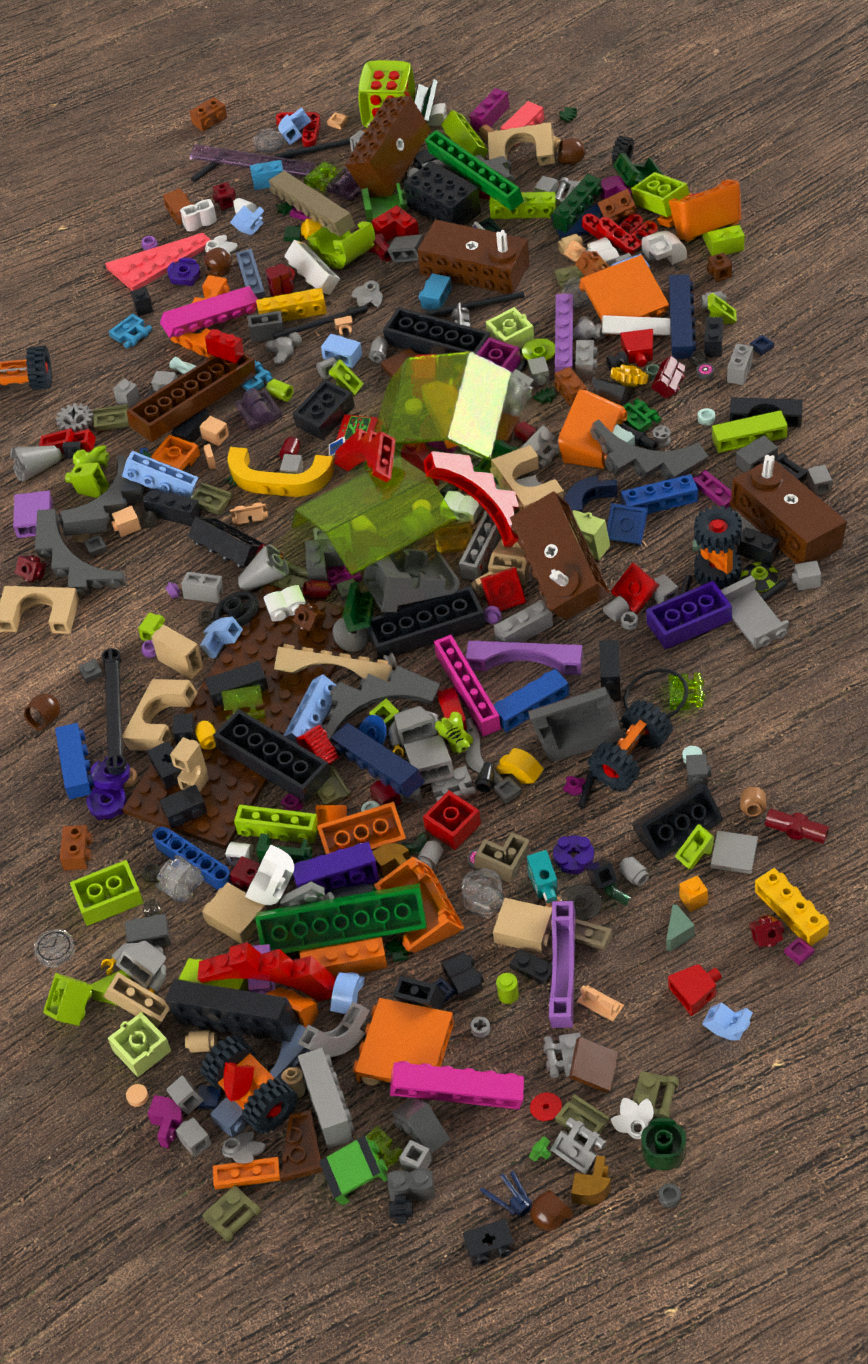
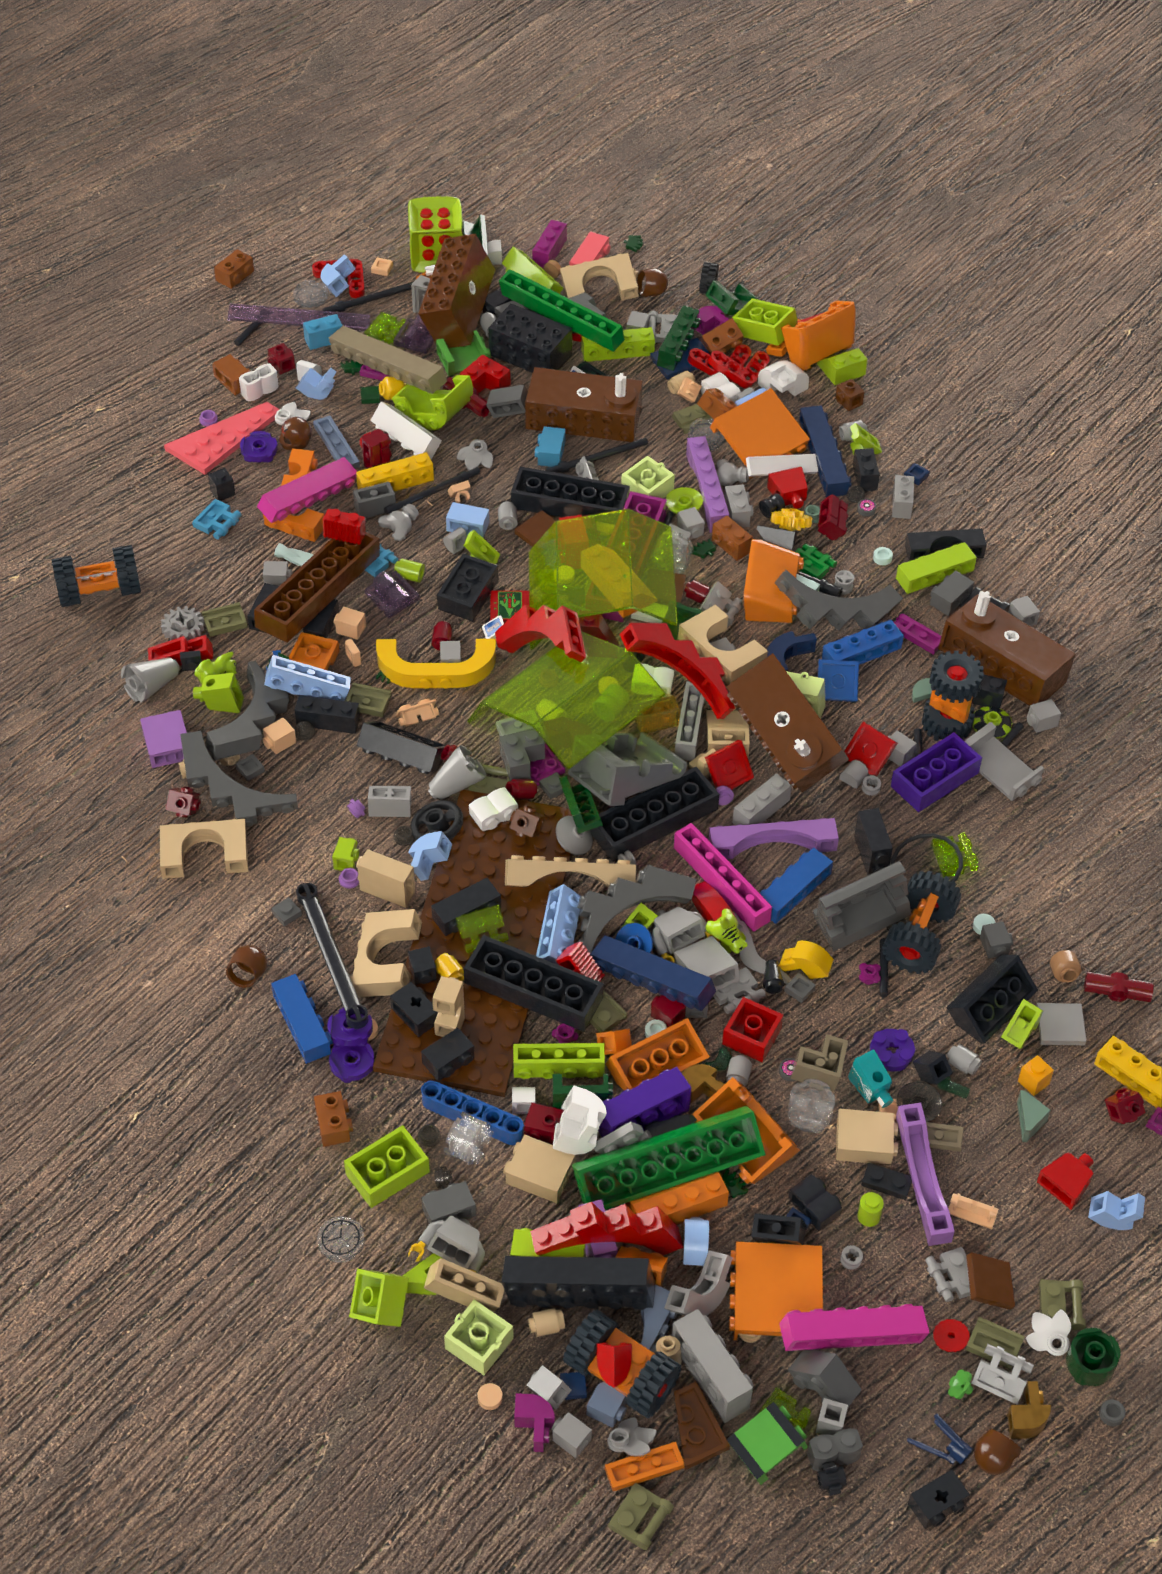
camera: 20 degrees left, 0 degrees up
(126, 393) = (235, 590): light grey brick -> none

